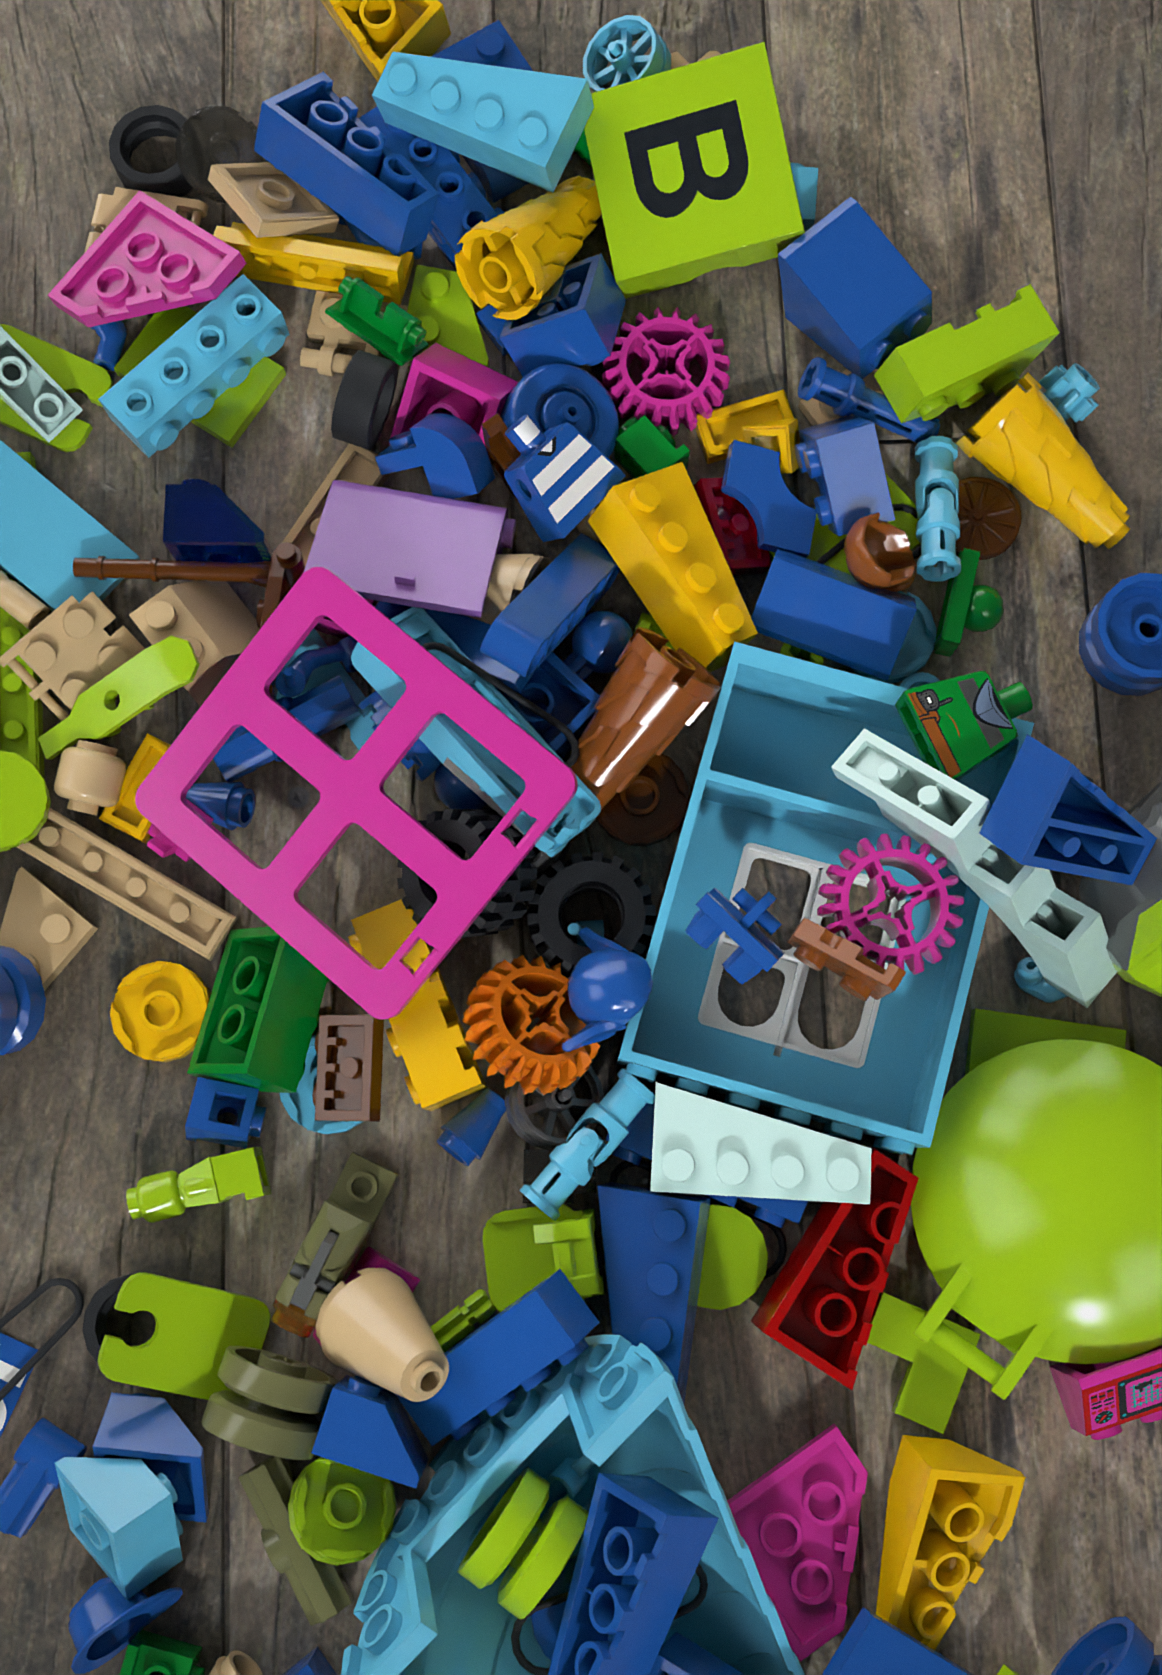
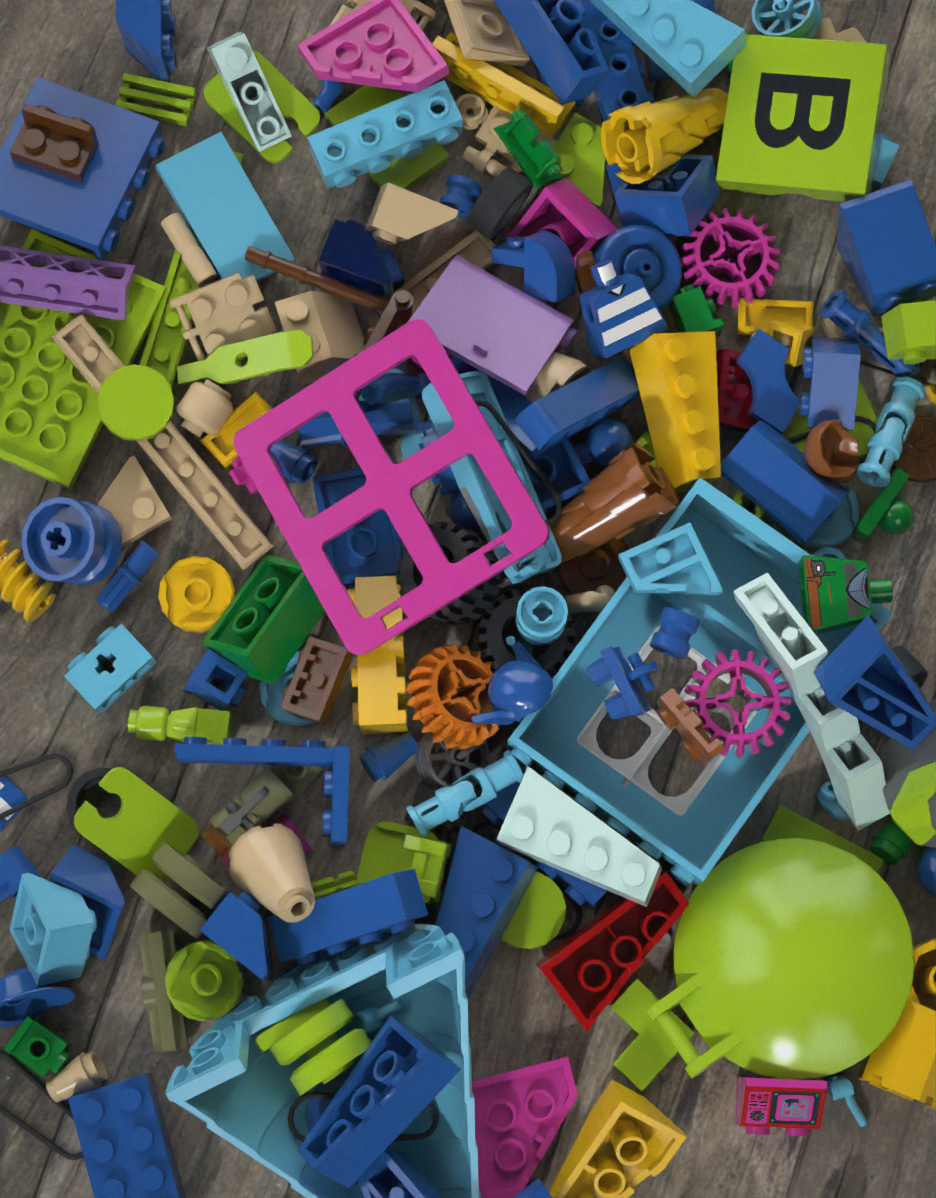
camera: 20 degrees right, 0 degrees up
(66, 1022) = (127, 577): none -> blue axle
(105, 1130) = (99, 686): none -> medium azure brick
(255, 451) = (404, 214): none -> tan slope
(264, 523) = (393, 268): none -> blue tile
(291, 294) = (475, 103): none -> tan plate
(313, 409) = (461, 194): none -> blue wheel
(330, 1179) = (276, 753): none -> blue bracket
(351, 878) = (369, 546): none -> blue tile
(463, 1541) = (287, 1025): none -> lime tile
(602, 884) = (541, 616): none -> medium azure wheel
(652, 843) = (589, 601): none -> tan arm
(742, 762) = (671, 565): none -> medium azure wing
(779, 846) = (674, 633): none -> blue wheel
(1127, 1006) = (890, 843): none -> green cone

